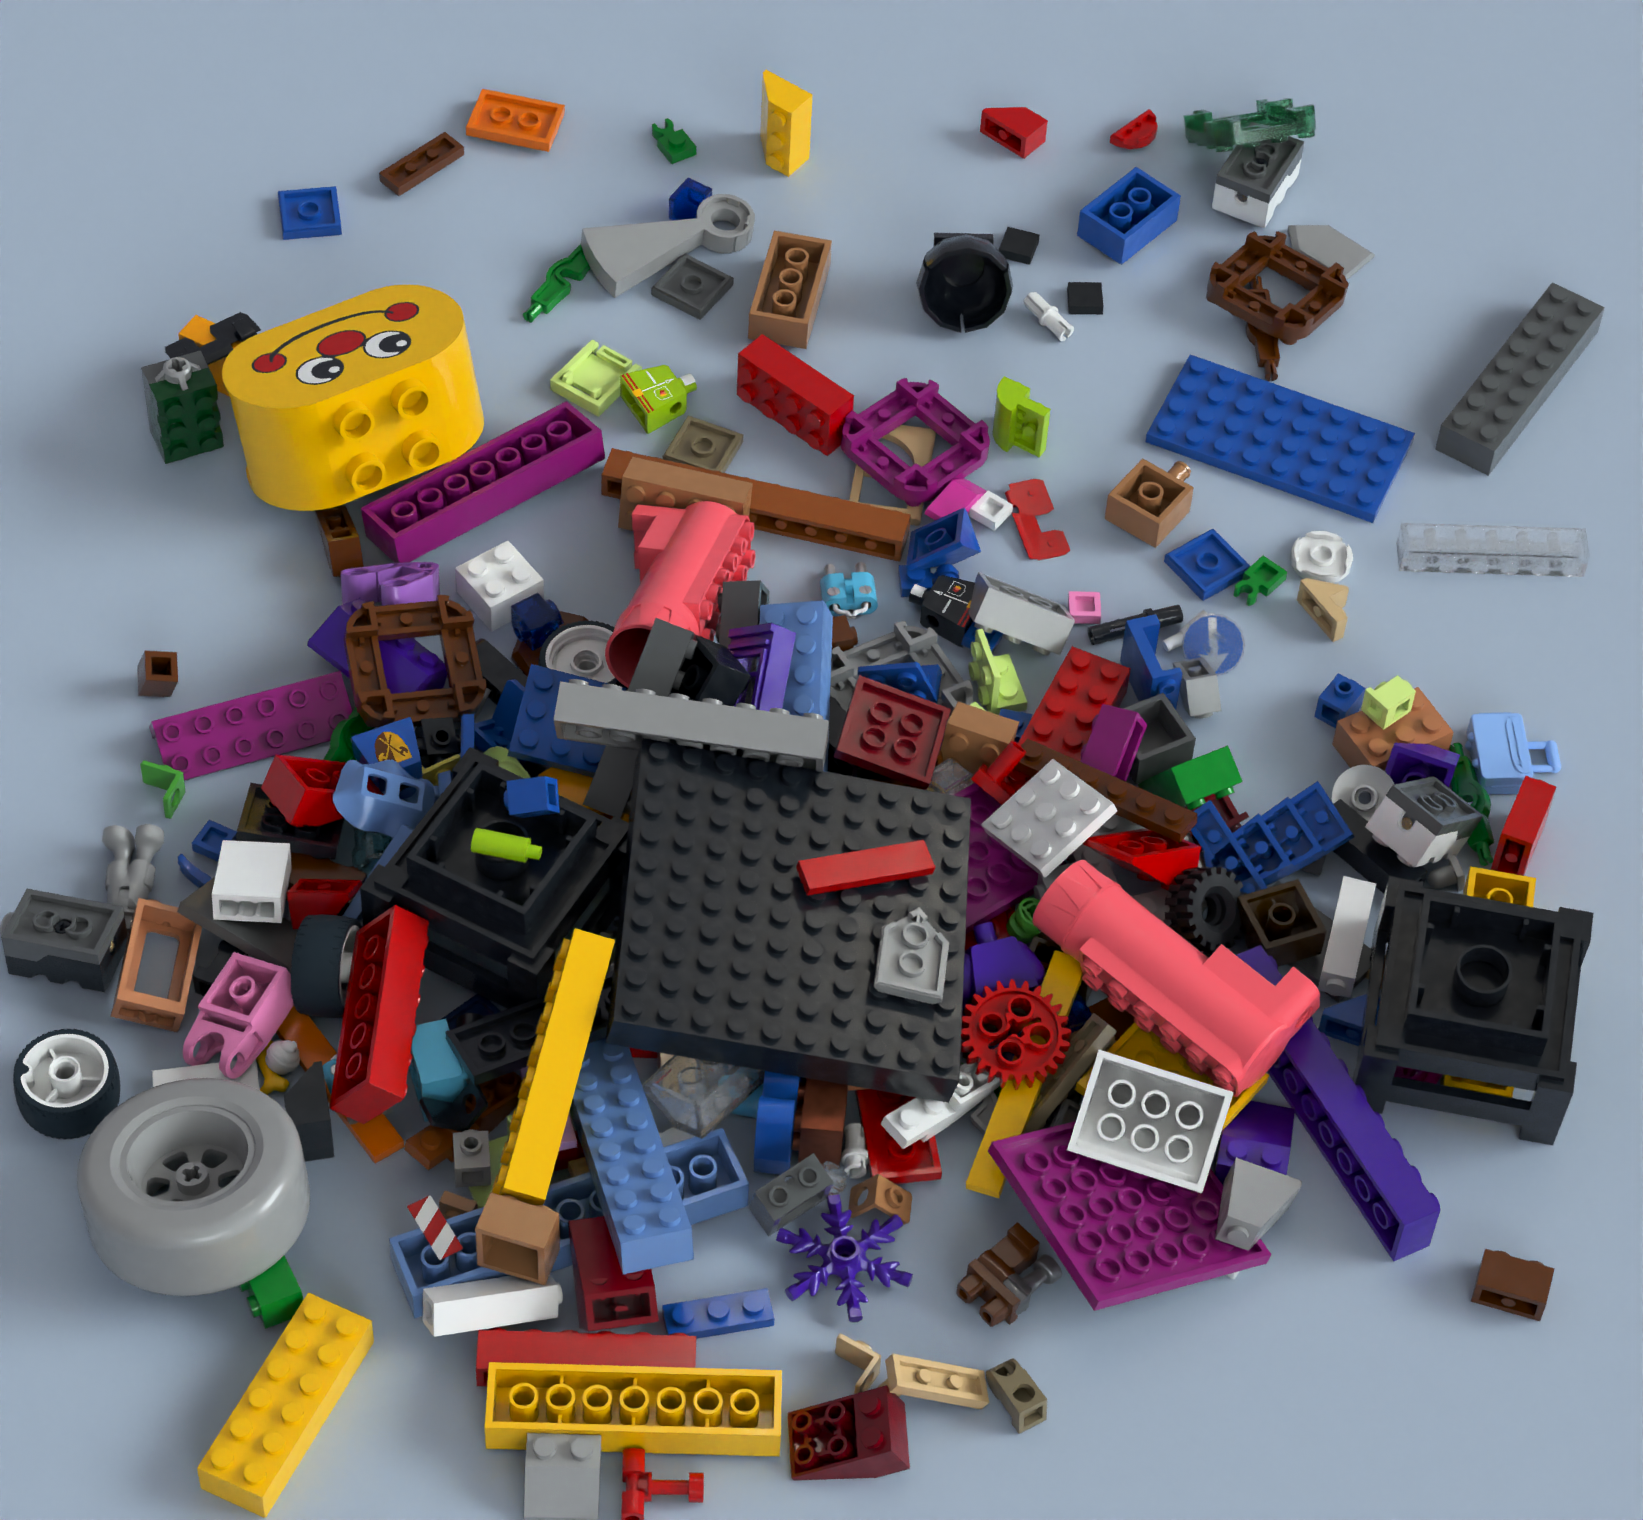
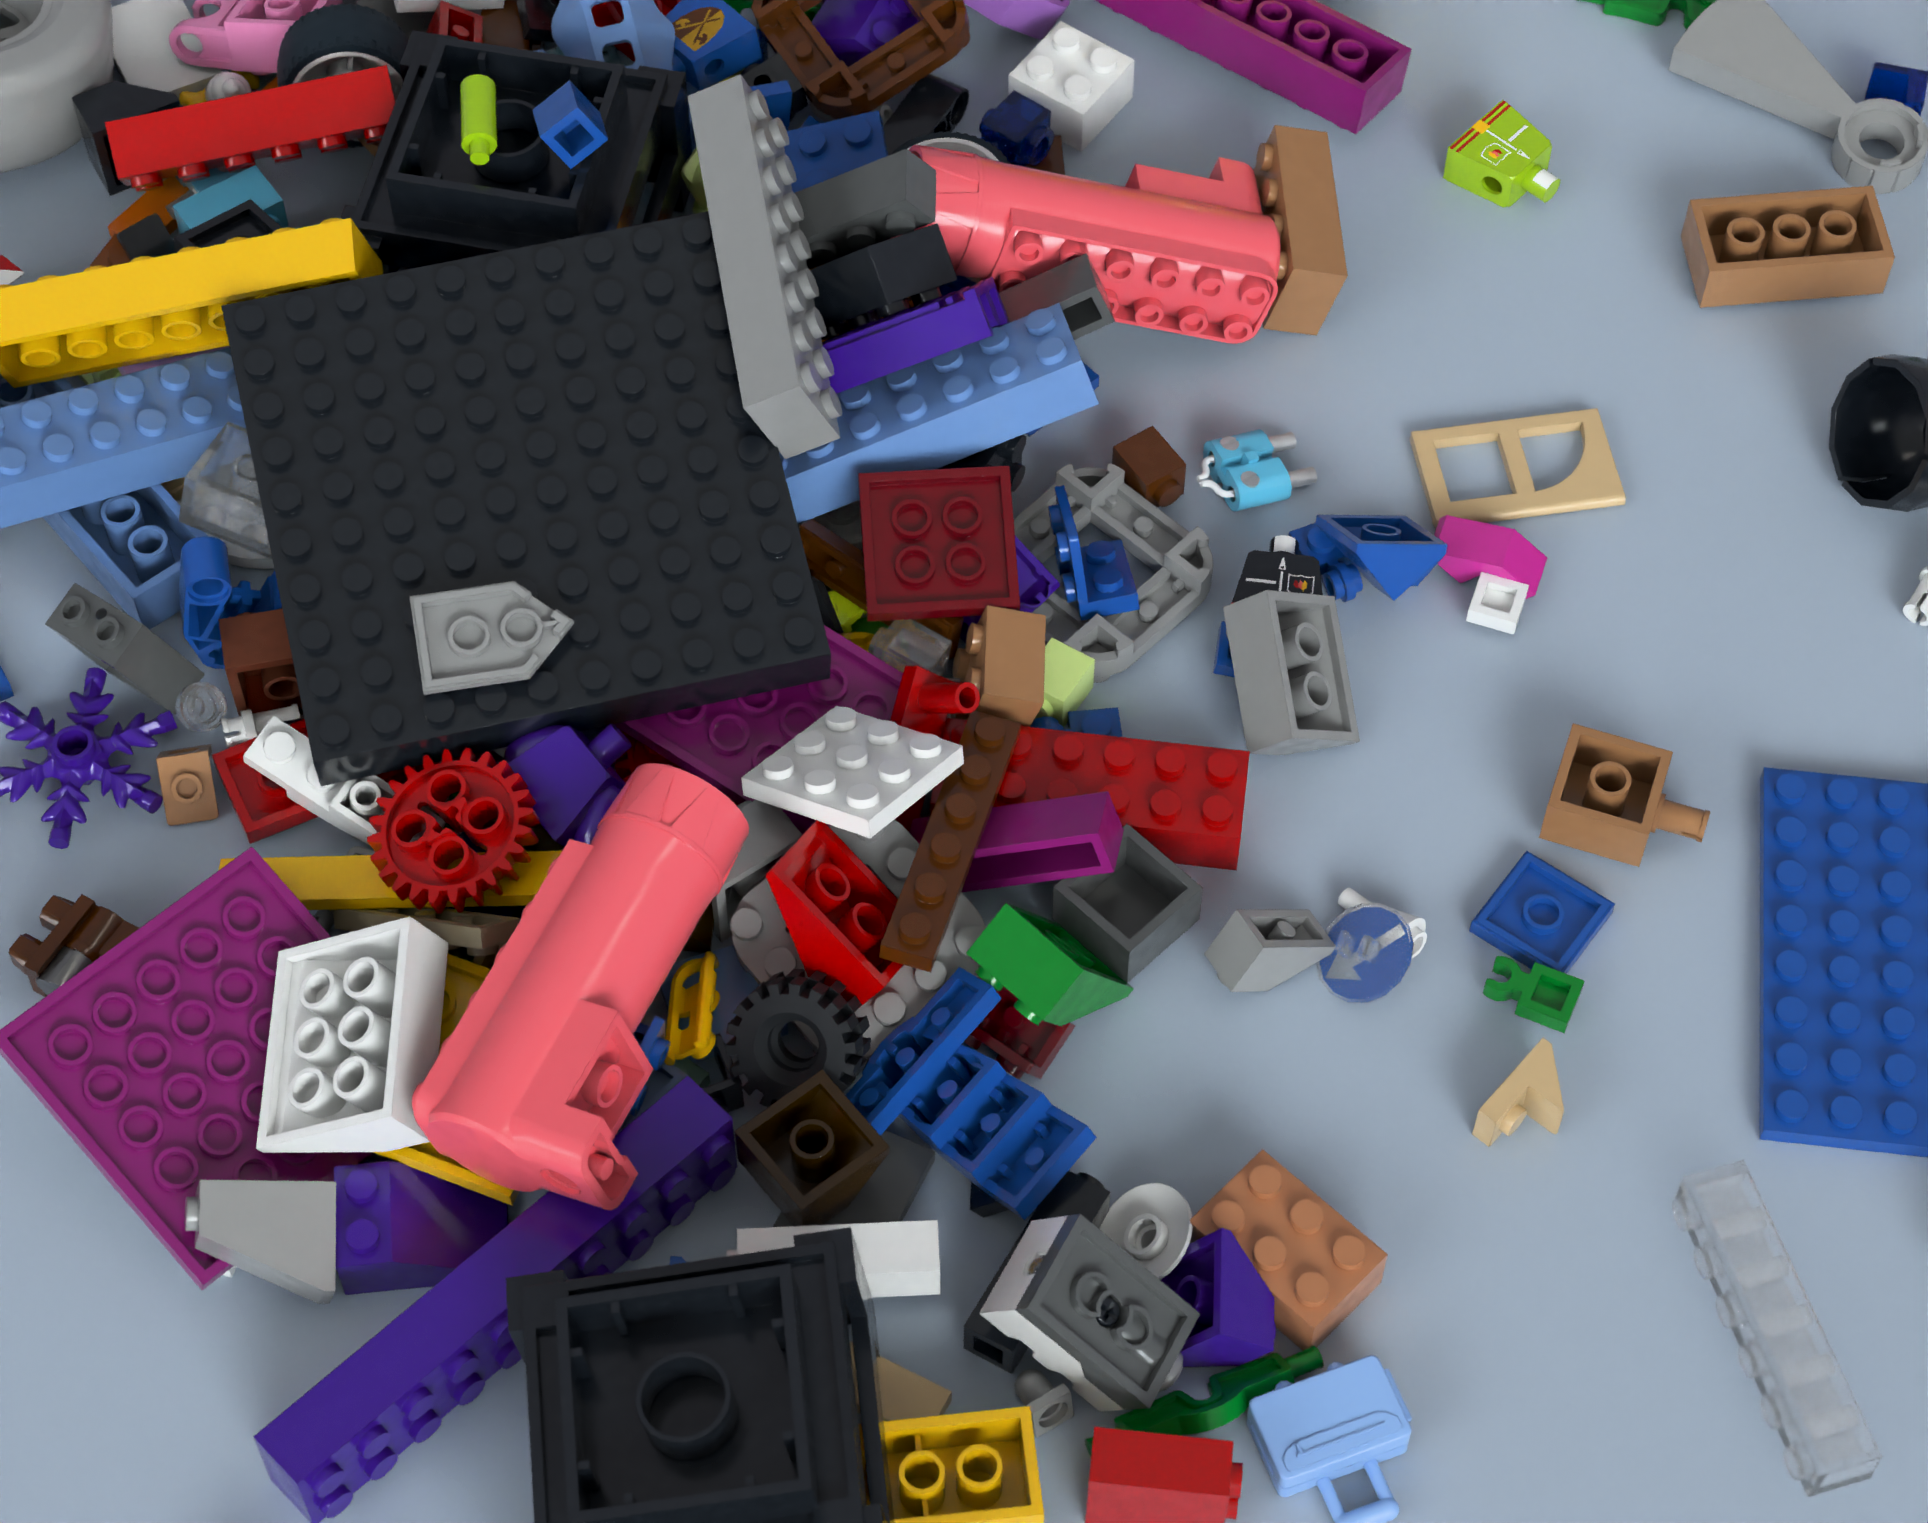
camera: 75 degrees right, 5 degrees up
(594, 375) = (1524, 80): yellowish green container -> none
(692, 286) = (1744, 149): dark grey tile -> none
(704, 445) = (1442, 242): dark tan tile -> none
(793, 394) = (1572, 299): red brick -> none
(798, 512) = (1366, 343): dark orange brick -> none
(865, 867) = (615, 536): tile -> none
(915, 483) = (1551, 398): magenta plate -> none
(995, 678) = (1162, 680): yellowish green bracket -> none
(1019, 419) = (1683, 574): lime brick -> none
(1038, 503) = (1547, 653): red piece -> none
(1084, 607) = (1363, 767): bright pink plate -> none
(1101, 632) = (1377, 858): black pin -> none
(1139, 655) = (1284, 841): blue panel -> none
(1321, 557) = (1638, 1076): white tile -> none
(1339, 700) = (1333, 1159): blue brick -> none
(1388, 701) = (1309, 1202): yellowish green brick -> none

